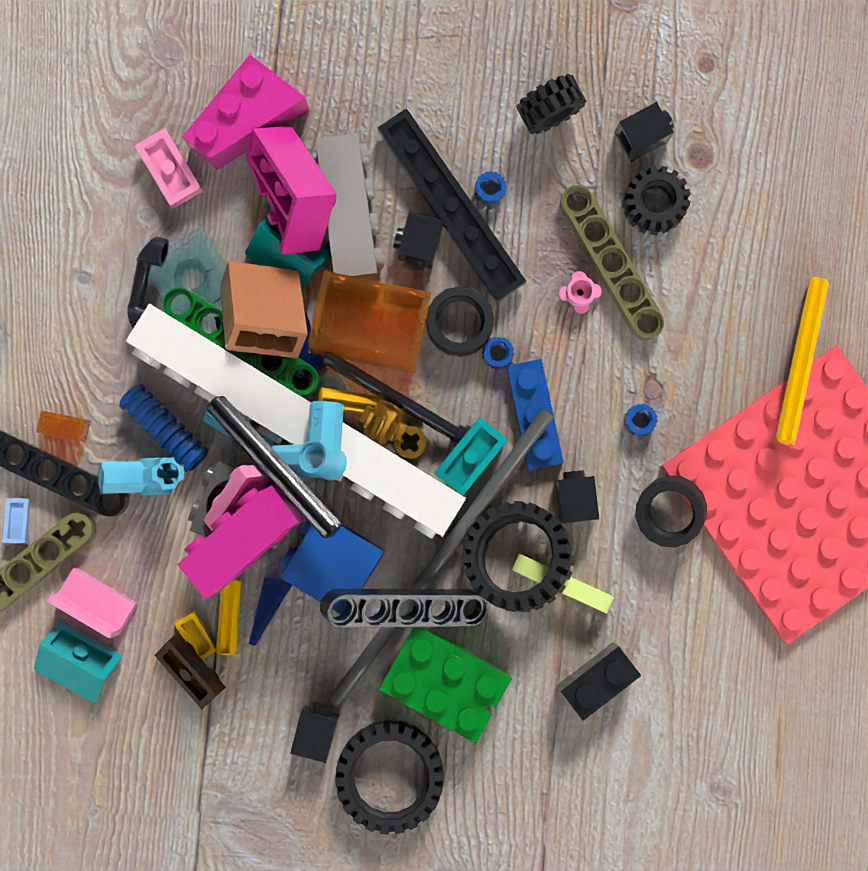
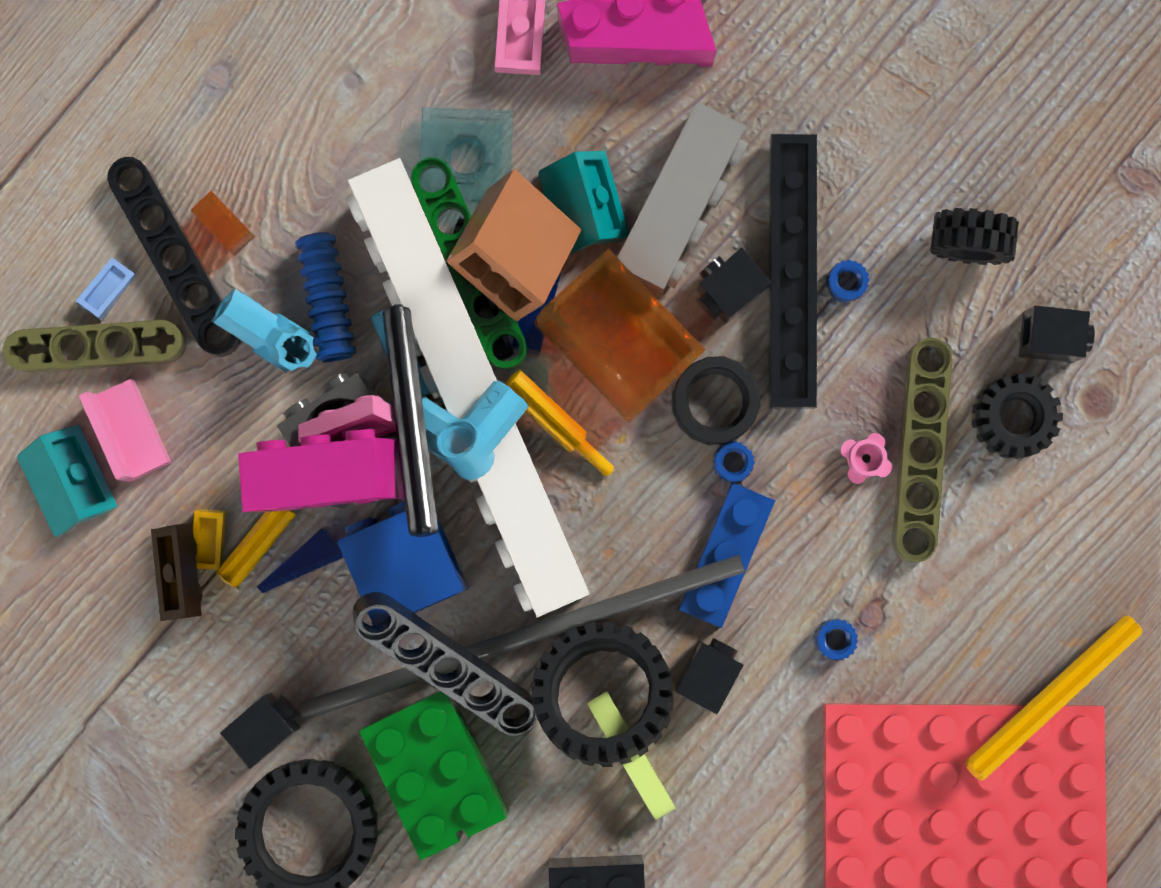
camera: 35 degrees right, 0 degrees up
(154, 254) = (440, 106): black bar -> none
(294, 187) = (638, 136): dark pink wedge -> none
(383, 422) = (558, 452): pearl gold gear -> none
(387, 393) = (631, 524): black piece -> none
(421, 444) = (562, 484): pearl gold bush -> none
(470, 456) = (626, 553): teal panel -> none
(658, 535) = (770, 778): black tyre -> none

